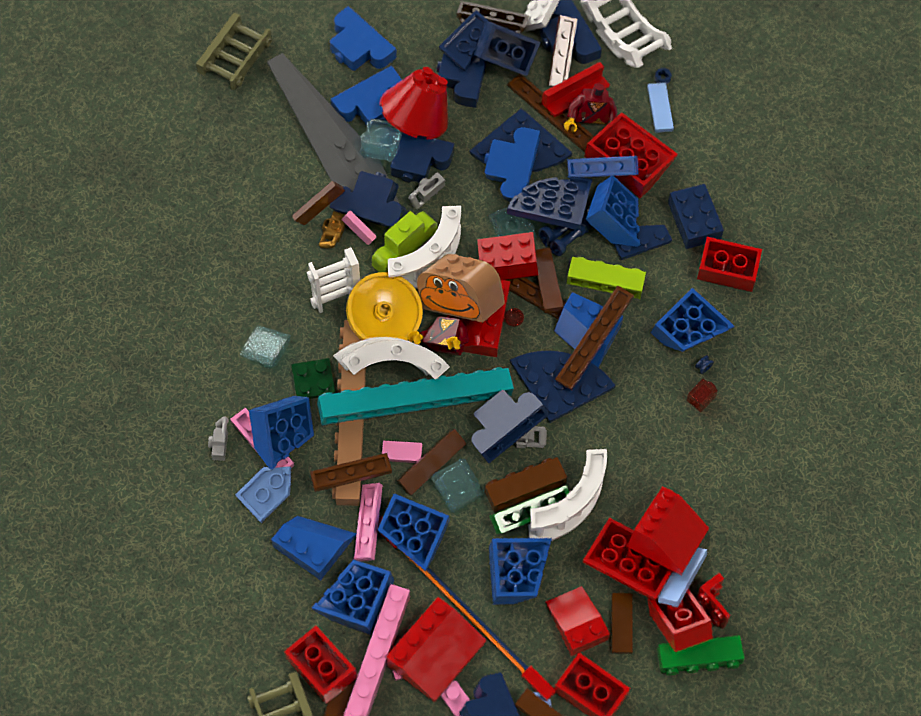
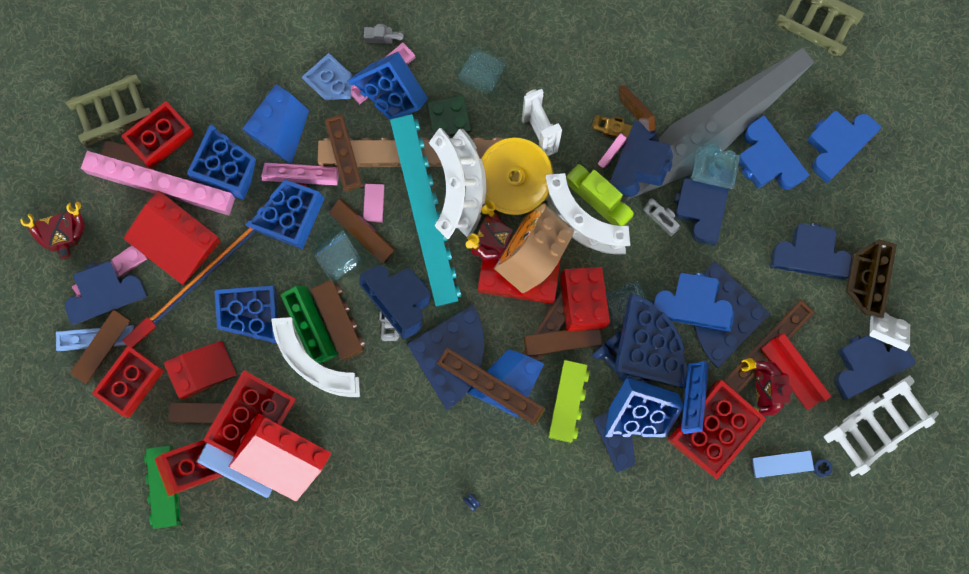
camera: 90 degrees right, 15 degrees up
(418, 104) = (754, 200): red cone -> none
(463, 41) = (844, 249): dark blue wing -> none
(506, 48) = (835, 292): dark blue brick -> none
(514, 317) = (521, 308): clear red plate -> none
(562, 50) = (841, 355): tile -> none
(690, 323) = (514, 488): blue wedge -> none
(695, 215) = (644, 497): dark blue brick -> none
(702, 395) = (436, 498): clear red brick -> none
(707, 599) = (217, 493): red bracket -> none
(729, 264) = (586, 532): red brick -> none

